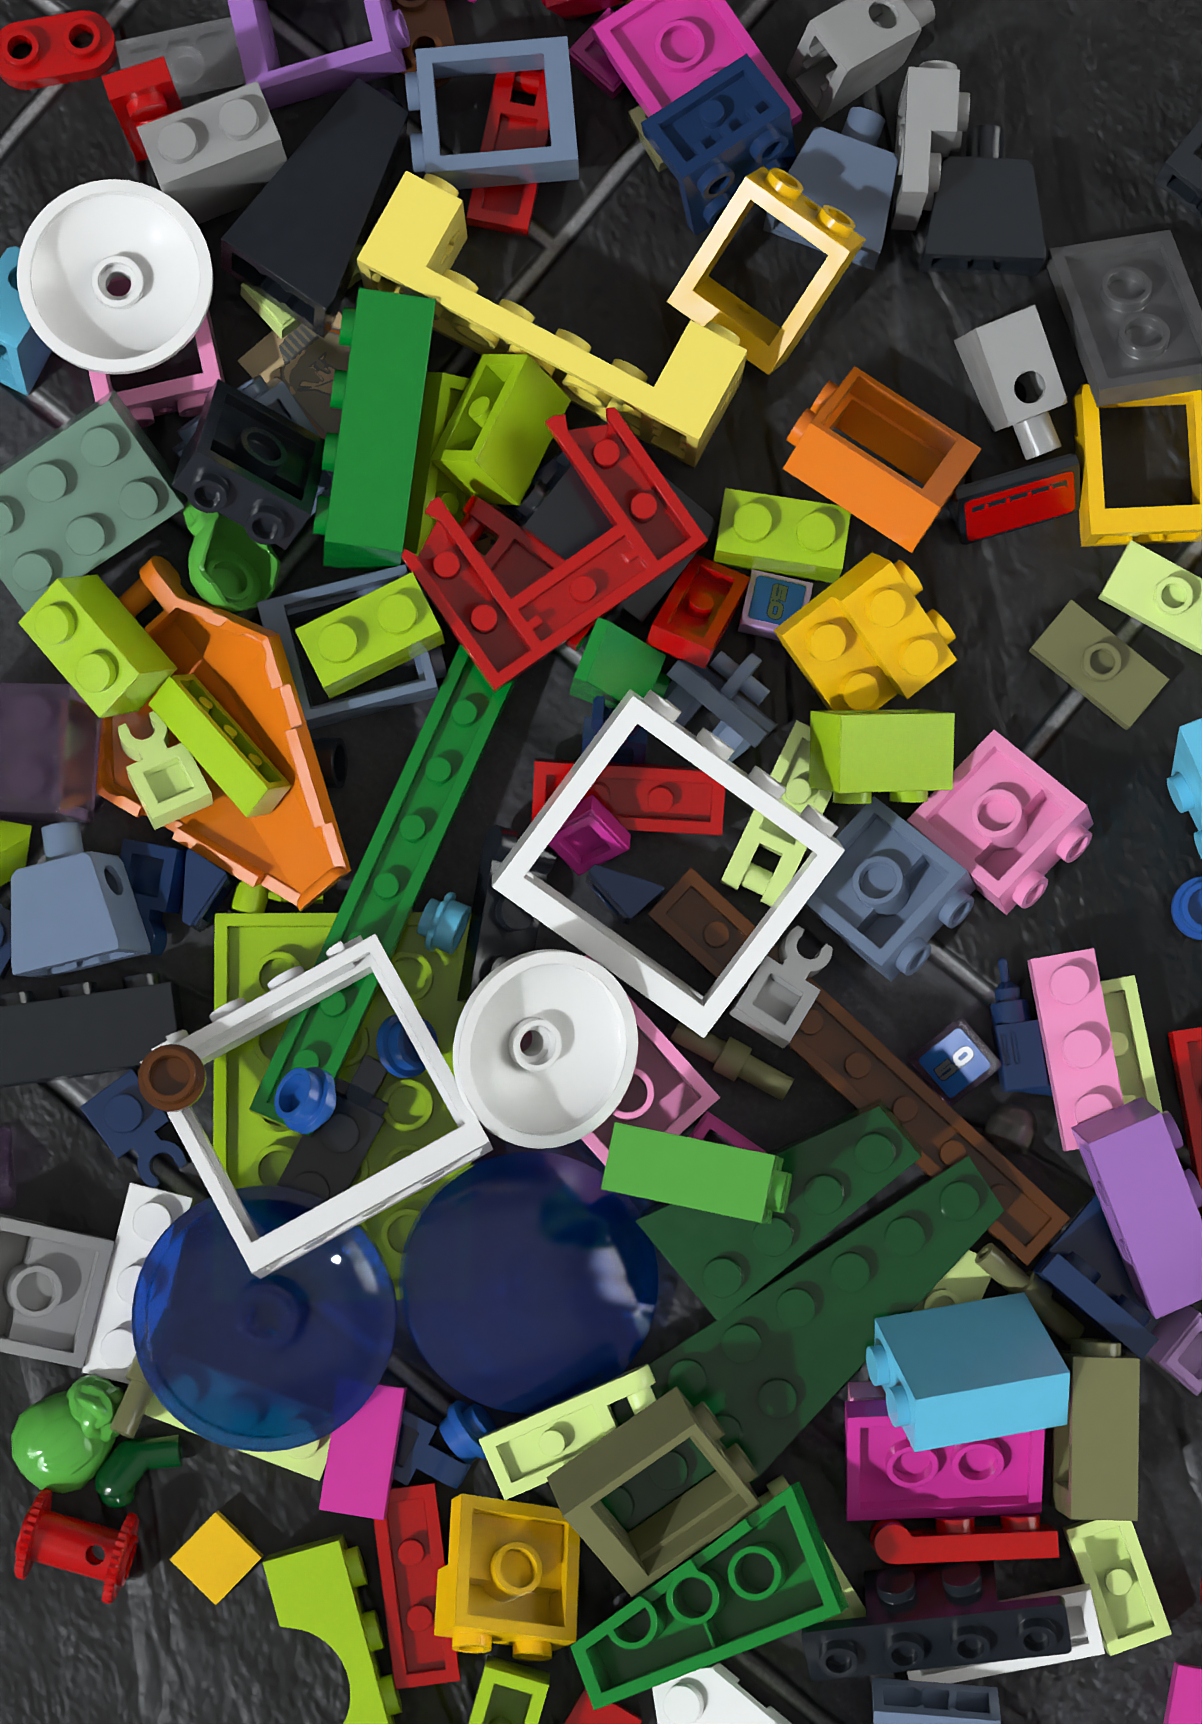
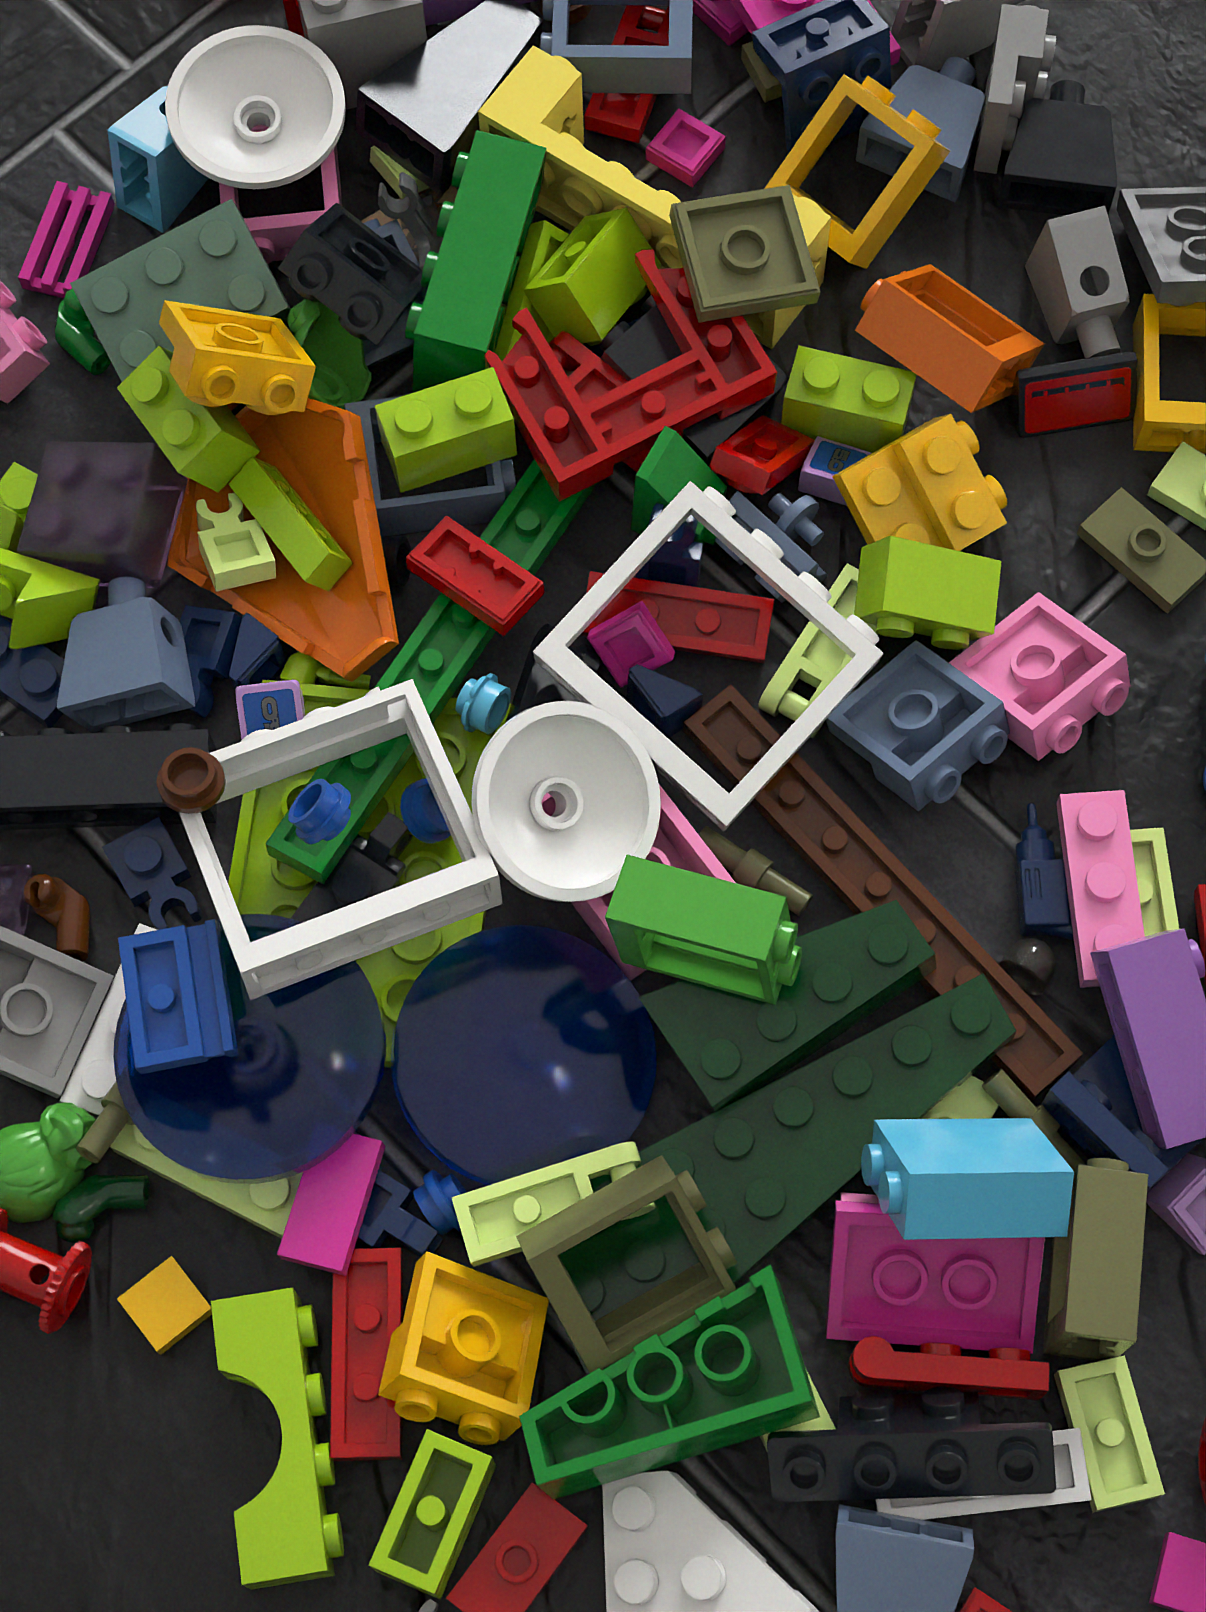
camera: 10 degrees right, 15 degrees down
(54, 1175) = (64, 910): none -> reddish brown arm
(142, 587) = (236, 359): none -> yellow plate
(189, 1286) = (177, 996): none -> blue plate
(233, 965) = (269, 705): none -> slope
(309, 374) = (416, 213): none -> dark grey piece
(419, 792) = (475, 575): none -> red plate
(578, 236) = (685, 147): none -> dark pink tile
(660, 411) = (744, 253): none -> olive tile
(778, 993) = (806, 799): light grey plate -> none
(955, 1061) = (979, 893): slope -> none

